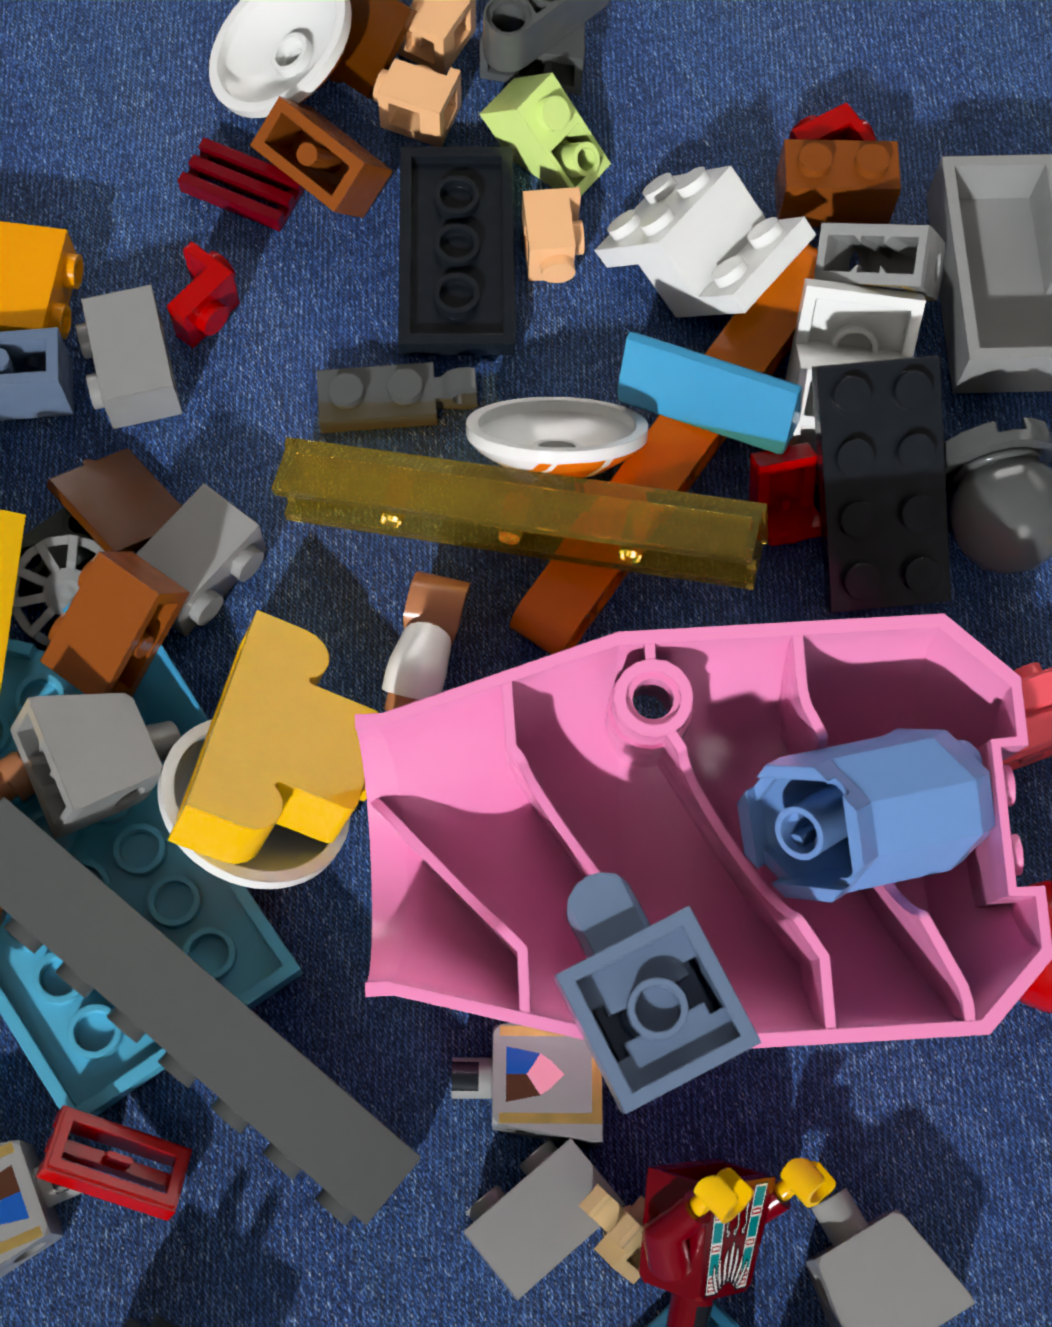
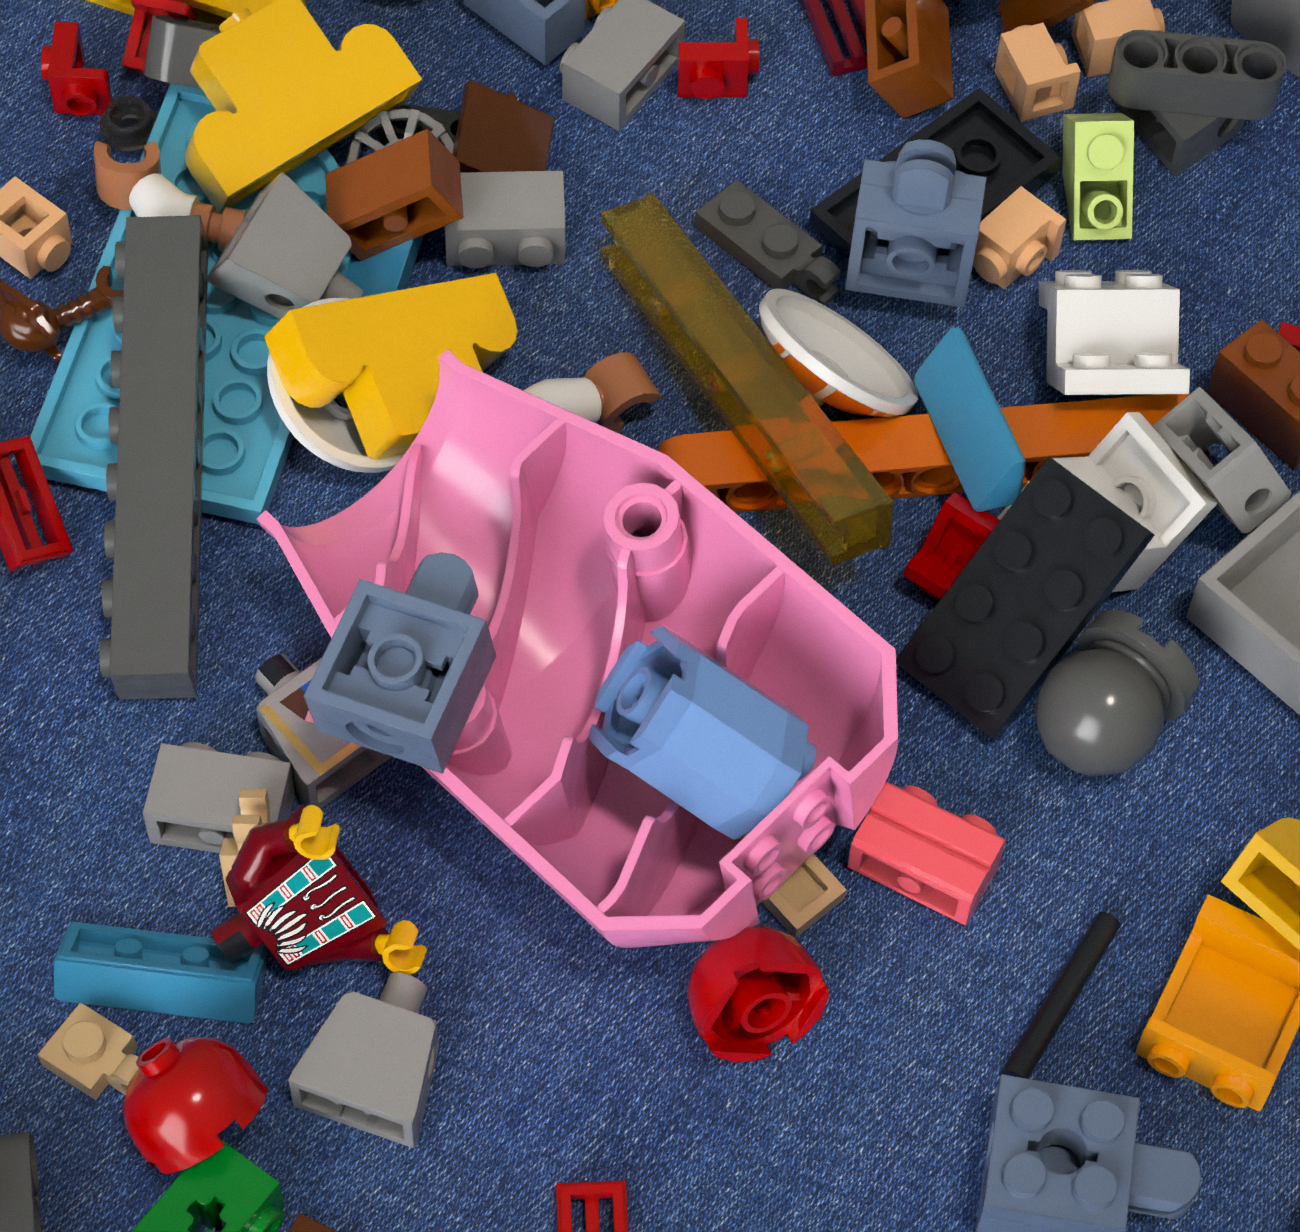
camera: 50 degrees right, 10 degrees down
(521, 271) = (916, 226): none -> sand blue brick

